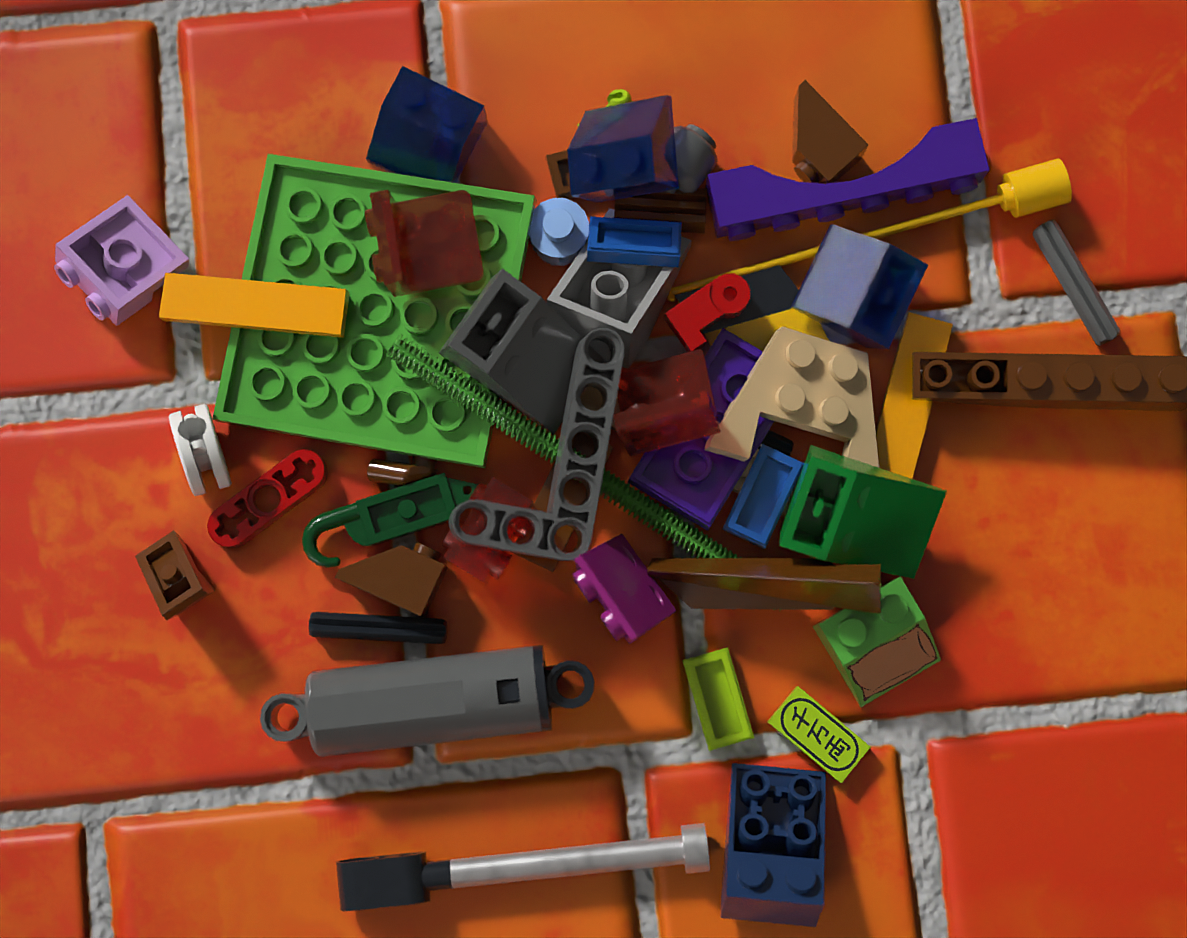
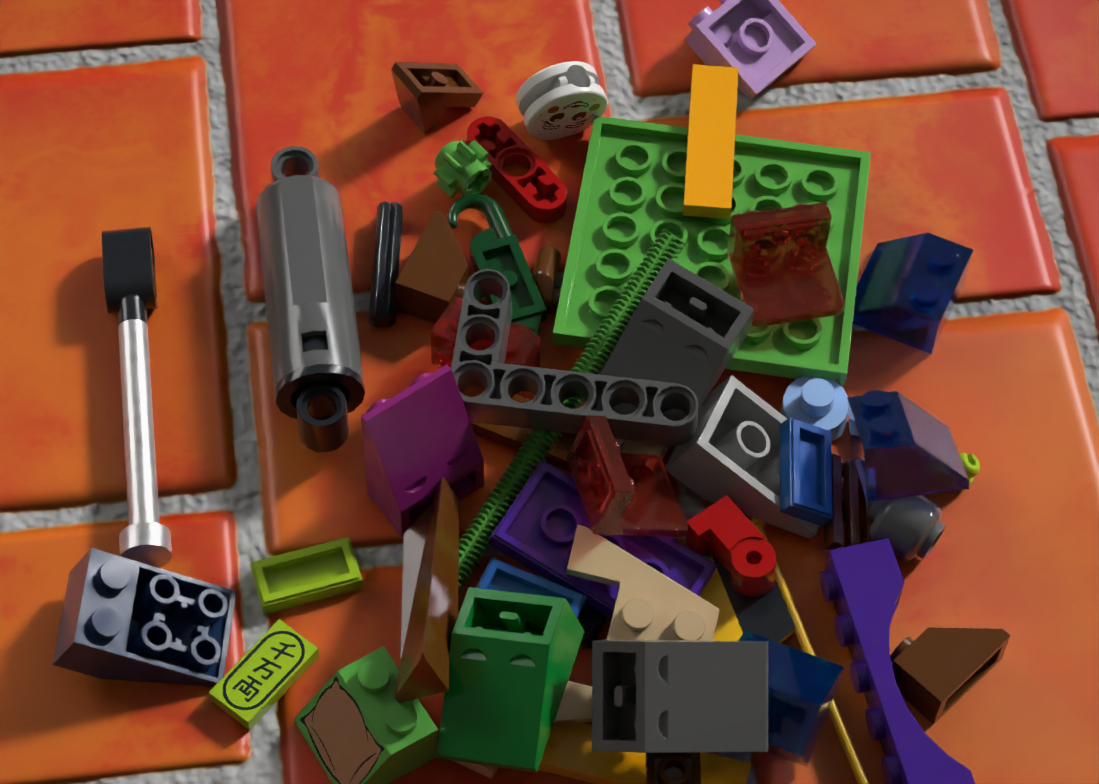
camera: 85 degrees right, 25 degrees down
(275, 550) = (462, 168): none -> bright green gear
(886, 364) = (679, 696): none -> dark grey slope

